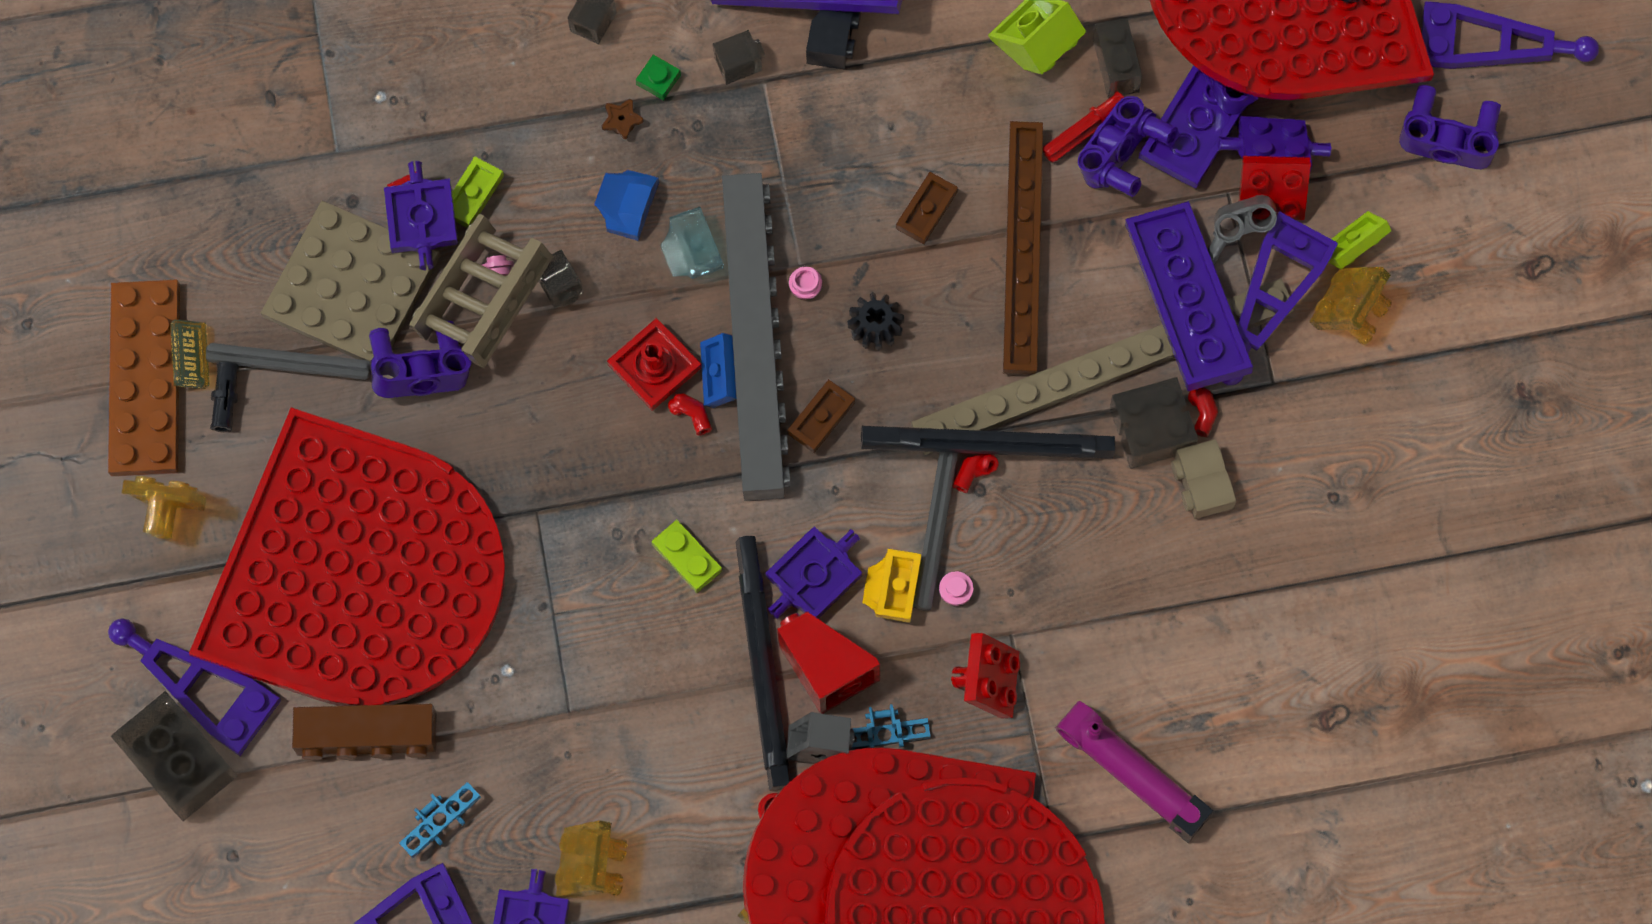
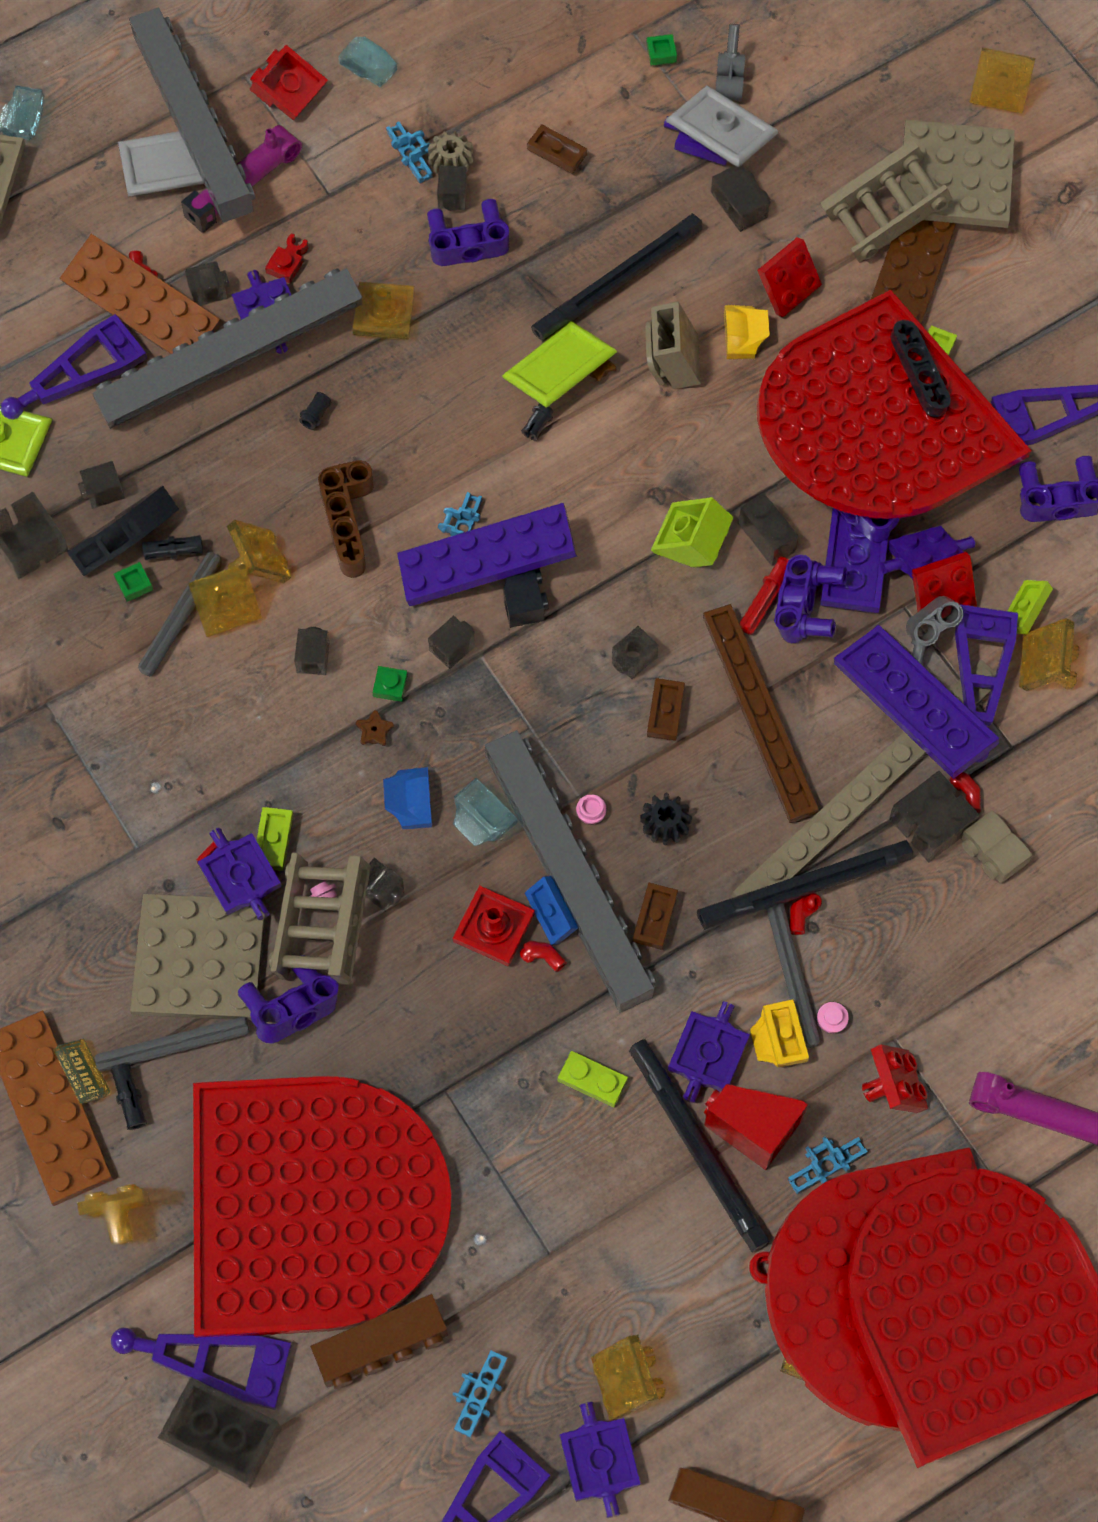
camera: 25 degrees left, 5 degrees down
(819, 737) = (780, 1189): dark grey brick -> none
(926, 125) = (635, 641): none -> clear smoke brick

